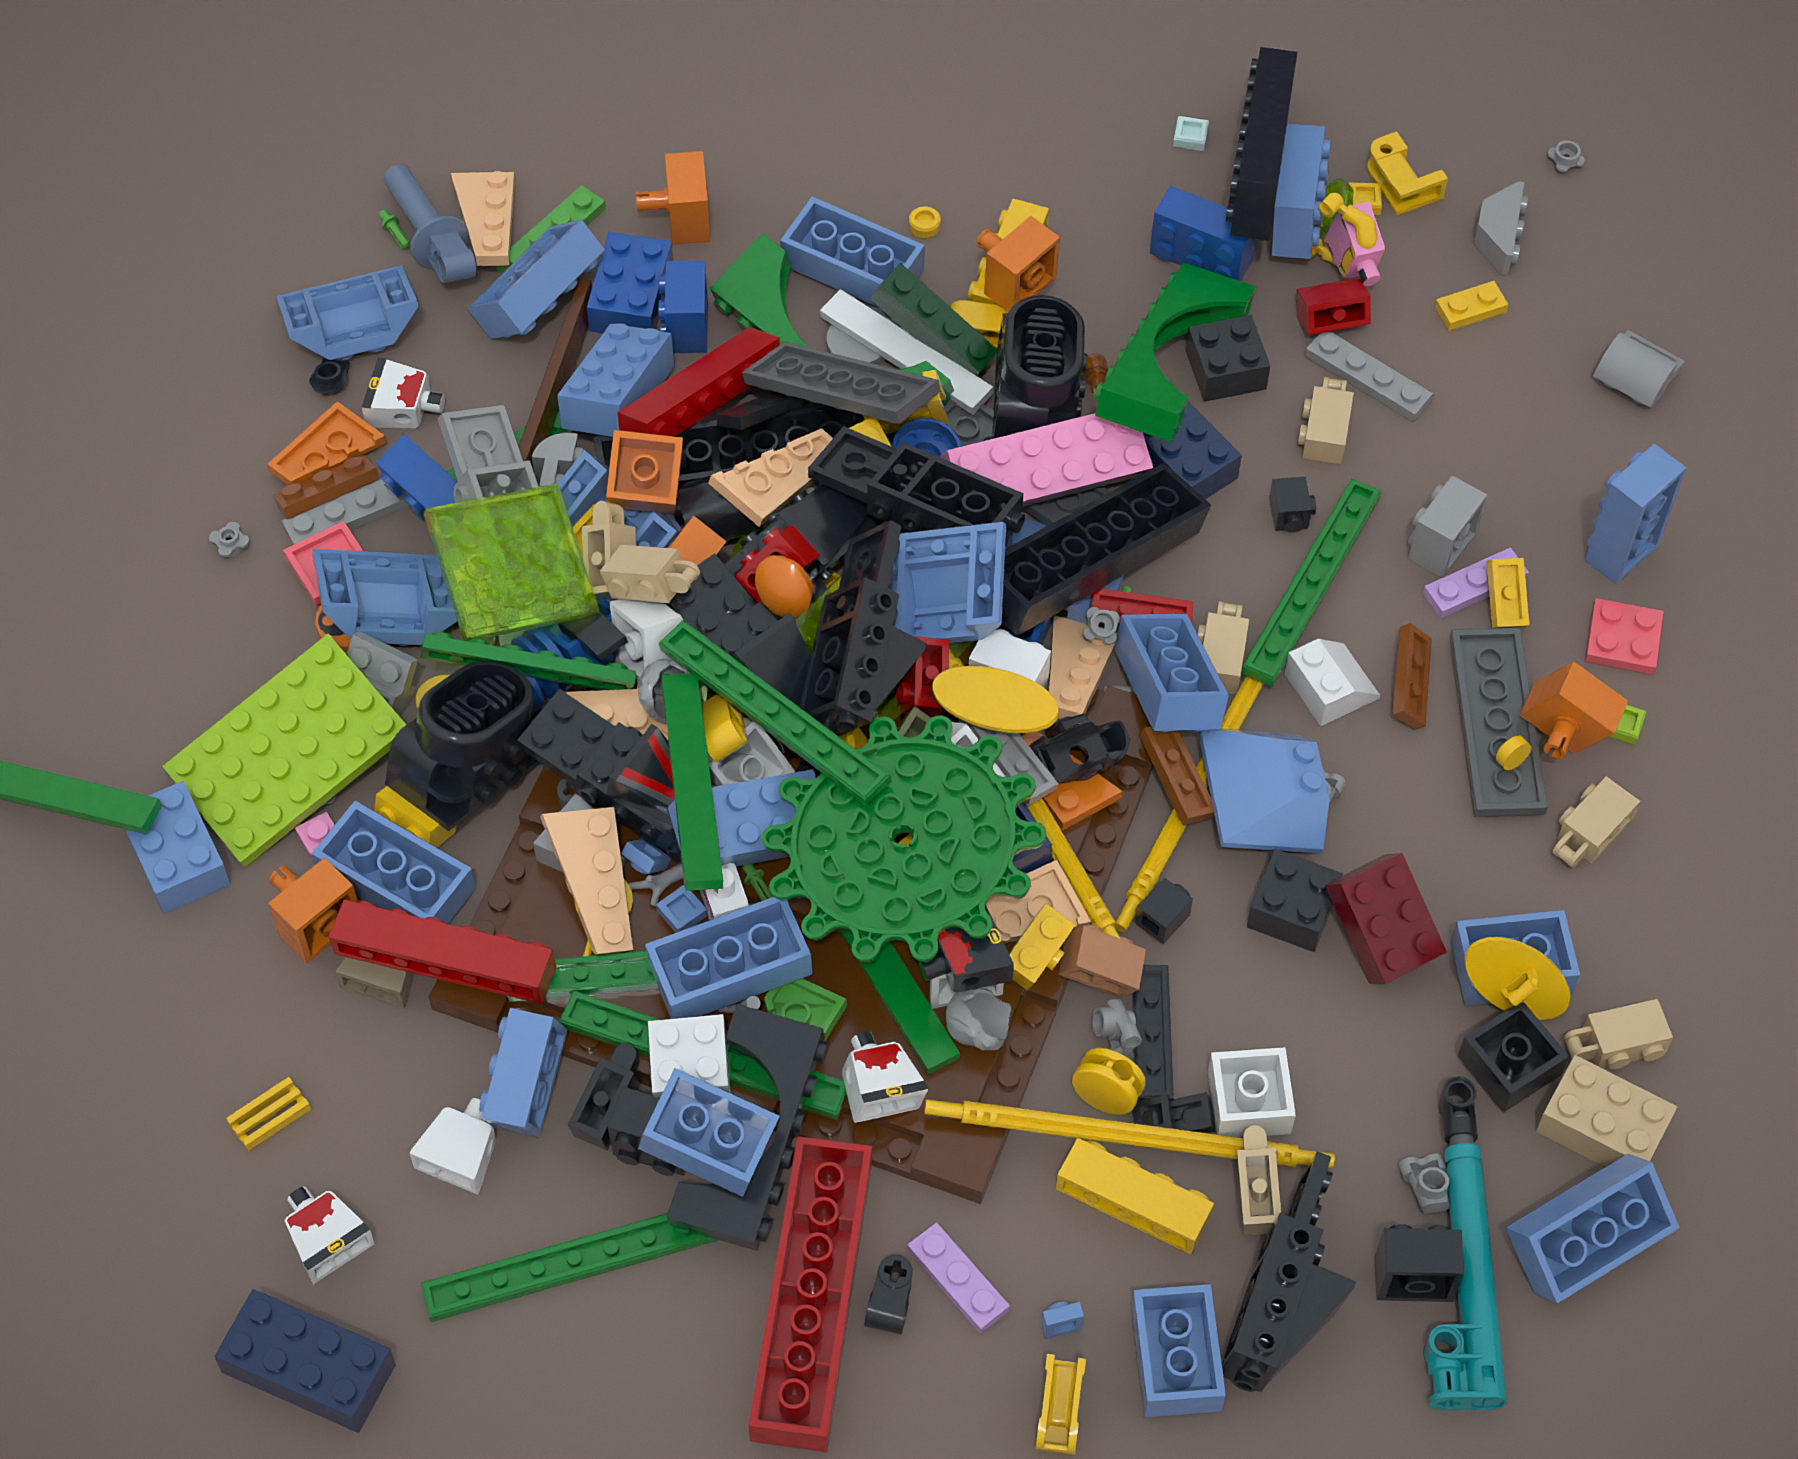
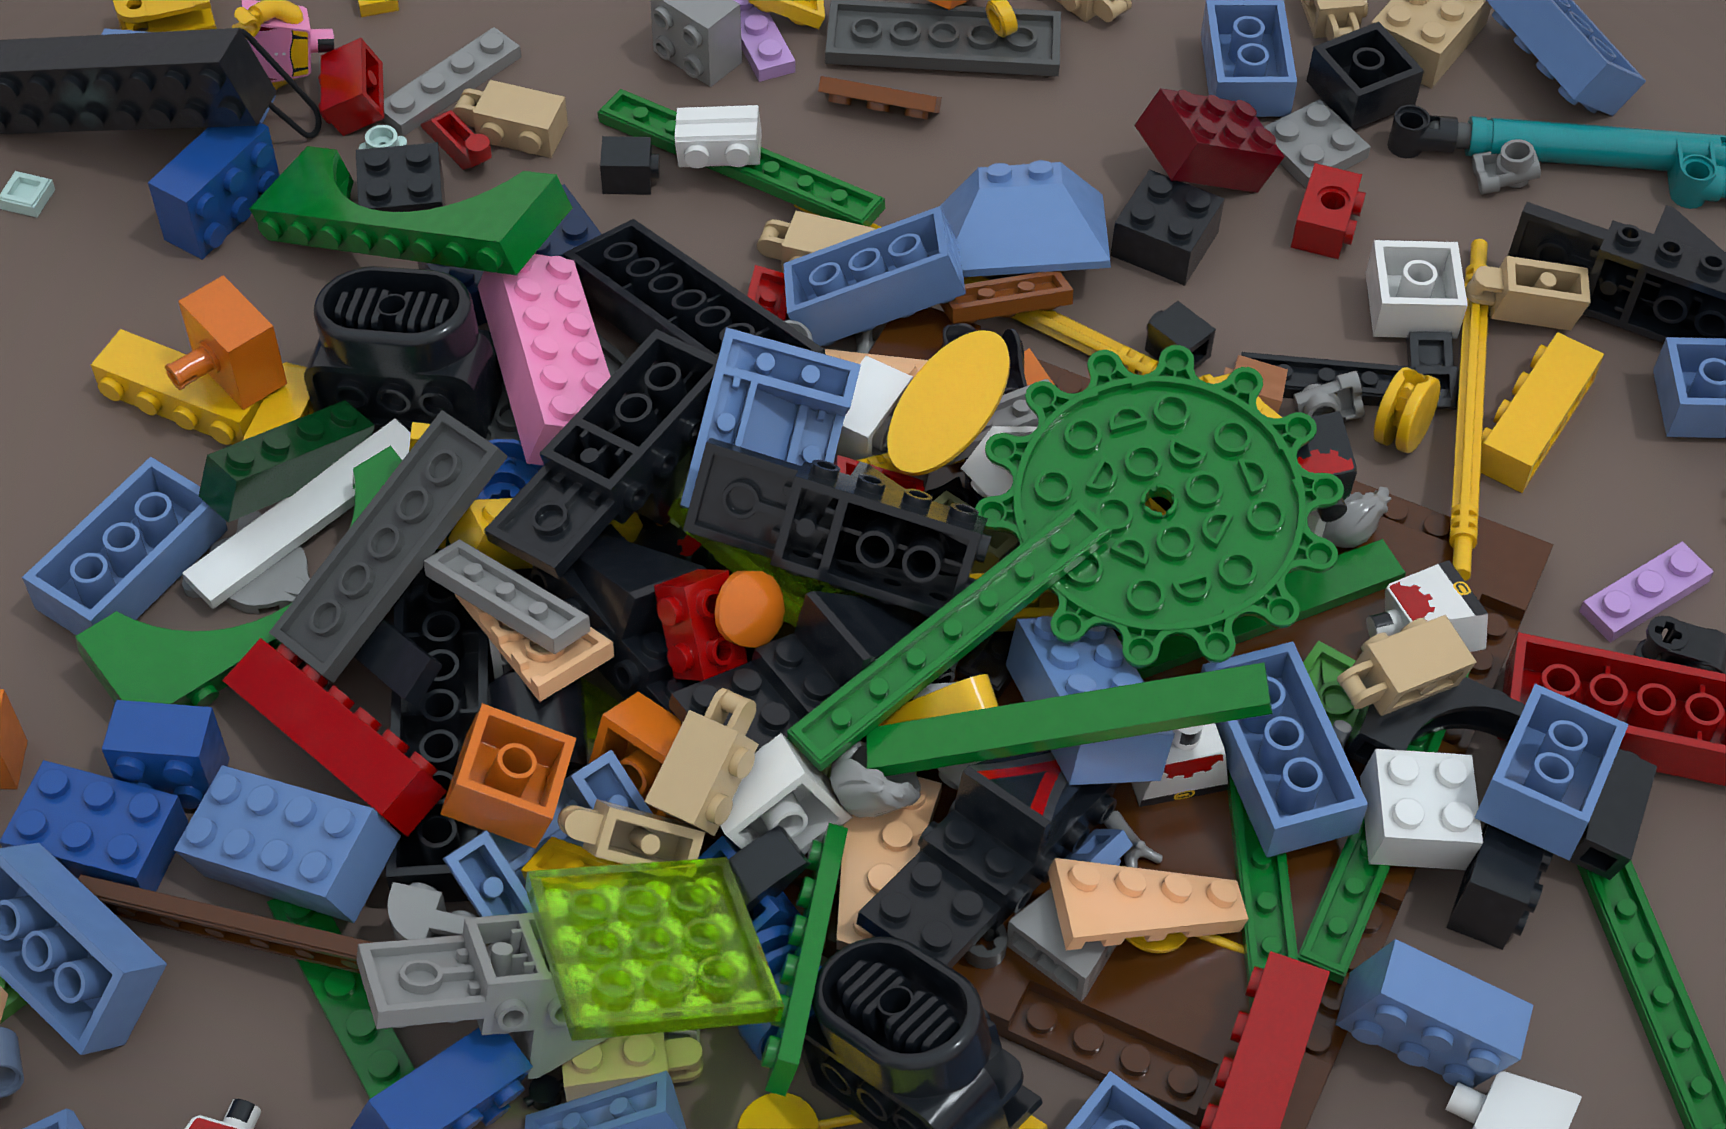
camera: 85 degrees left, 5 degrees down
(601, 1095) = (1451, 926): black brick -> none
(681, 909) = (1179, 818): medium blue plate -> none
(790, 1028) = (1407, 666): none -> tan brick
(793, 451) = (507, 596): none -> light grey plate
(924, 222) = (79, 481): yellow tile -> none
(1062, 1319) = (1697, 492): medium blue plate -> none
(1280, 239) = (293, 84): none -> black piece
(1285, 334) = (382, 136): none -> light aqua plate
(1295, 390) = (458, 140): none -> red piece
(1315, 553) = (718, 136): none -> white brick
(1329, 680) = (883, 164): white slope -> none
(1358, 1020) = (1327, 211): none -> red brick
(1419, 1264) = (1615, 172): black brick -> none
(1432, 1024) = (1317, 137): none -> light grey plate
(1517, 973) = (1293, 41): yellow shield -> none

